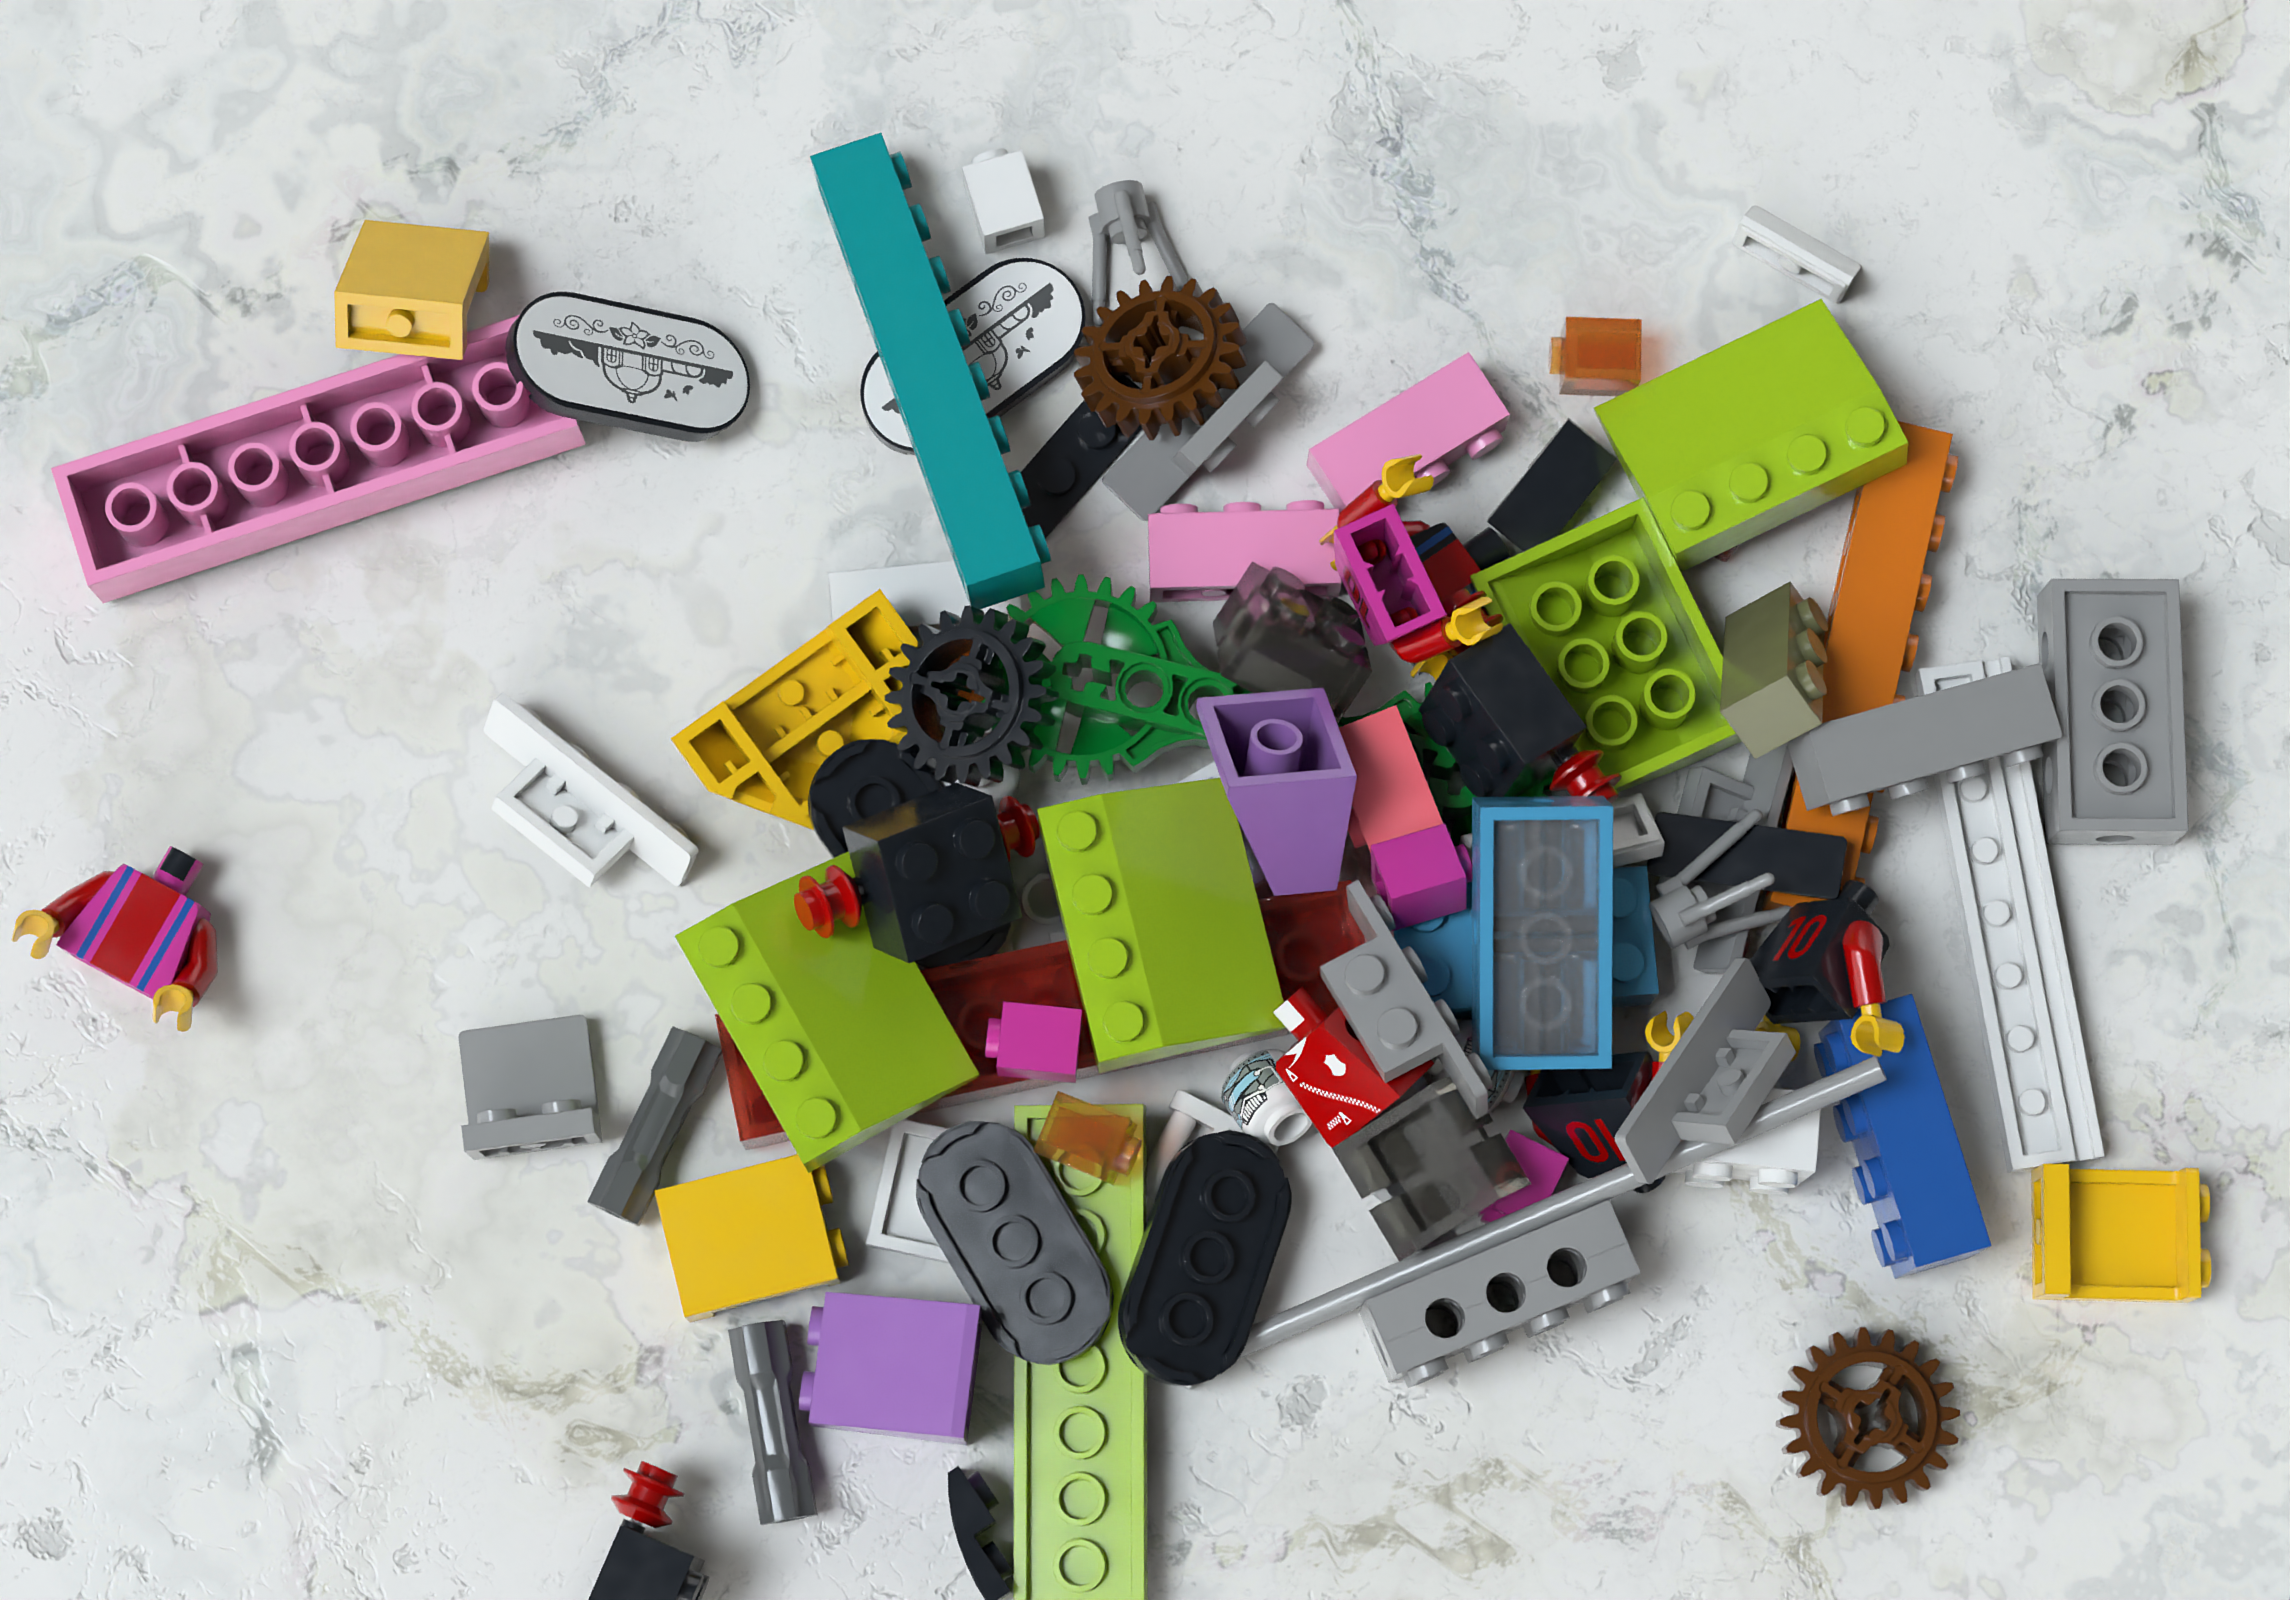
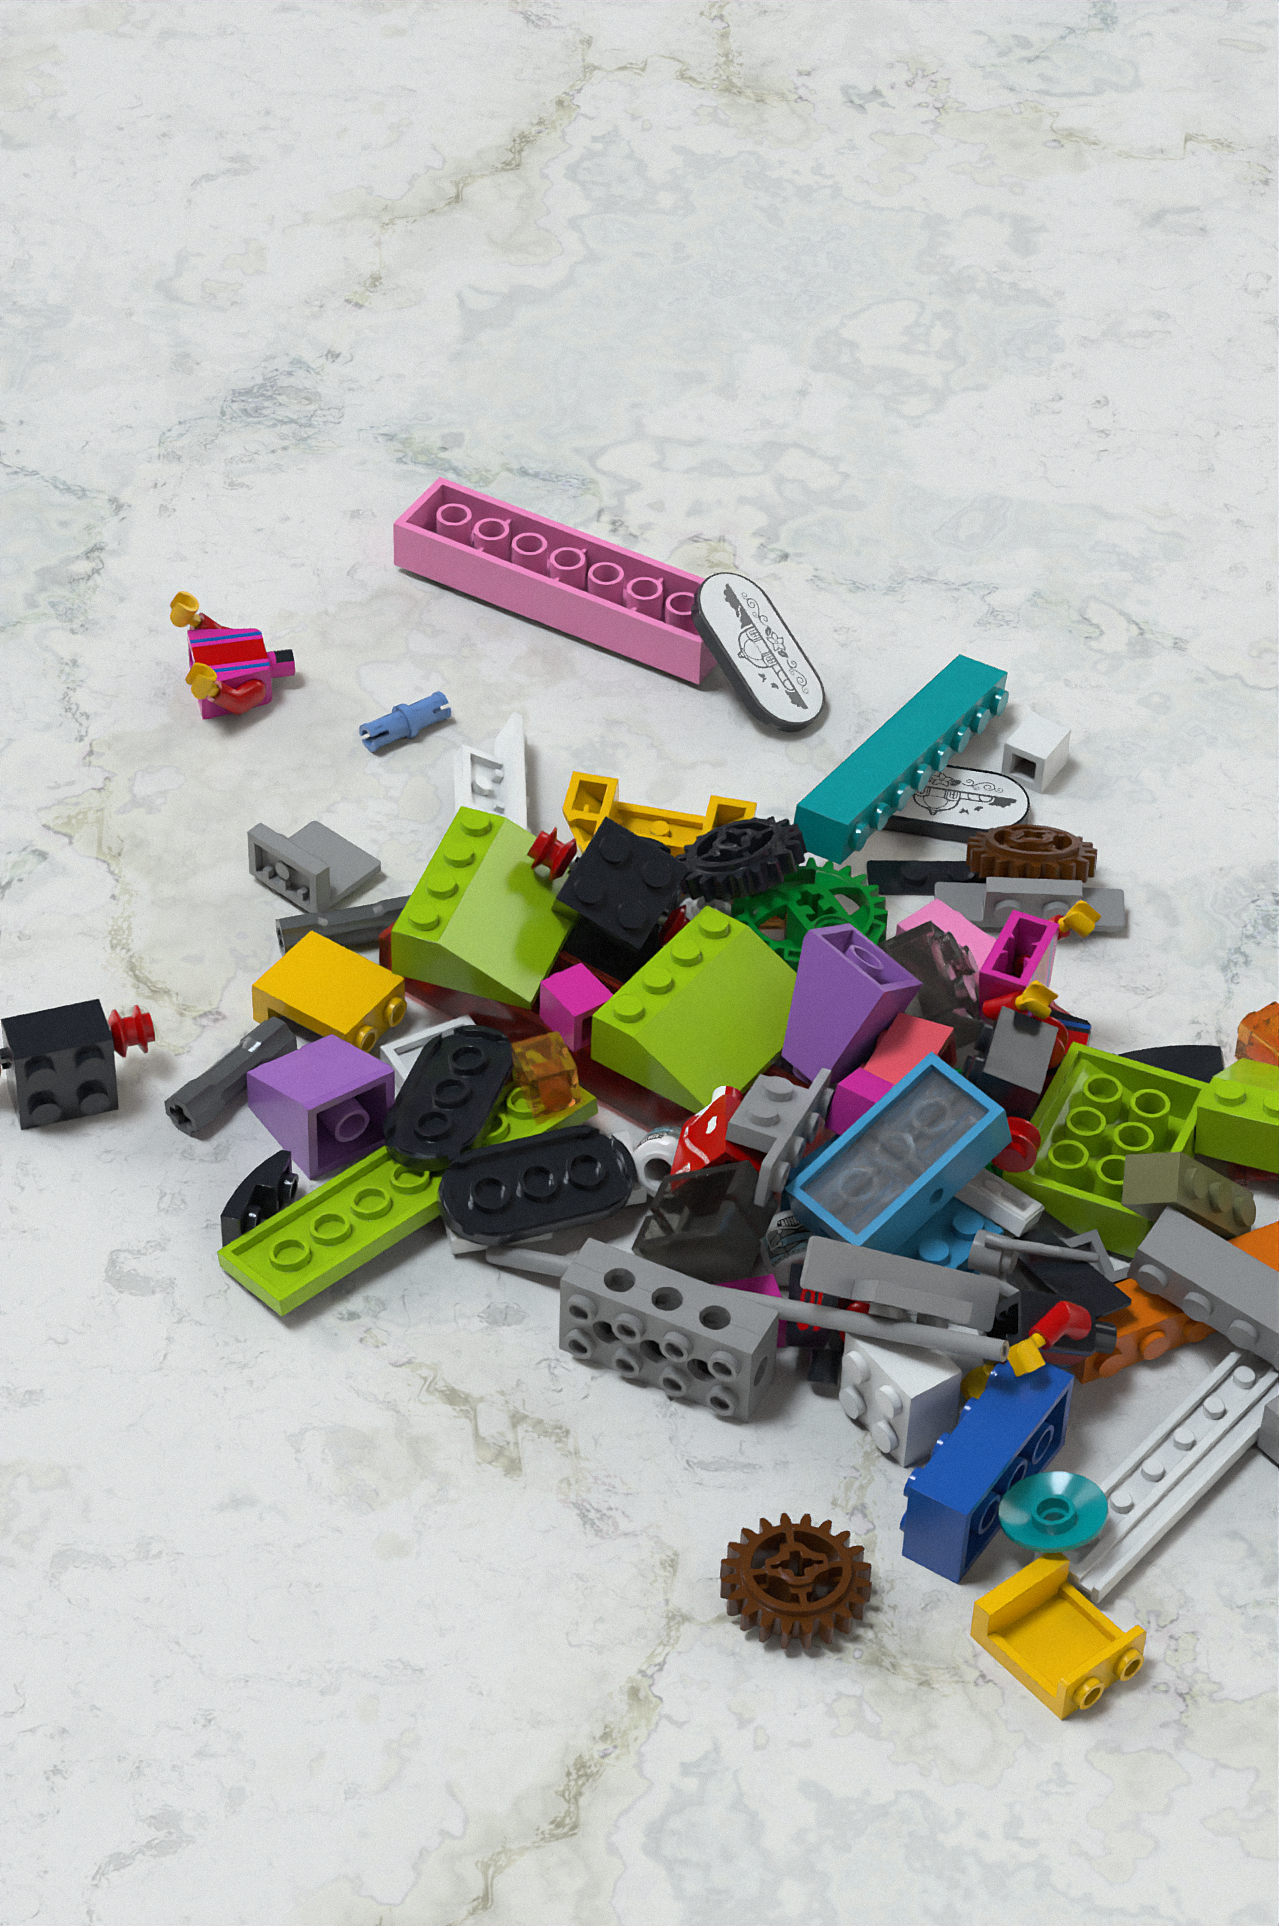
camera: 50 degrees right, 35 degrees down
(380, 807) = (405, 721): none -> medium blue pin
(410, 289) = (689, 542): yellow panel -> none
(1125, 217) = (1089, 807): light grey plant -> none
(1437, 417) = (1124, 992): bright pink brick -> none
(2035, 1106) = (1053, 1512): none -> teal dish

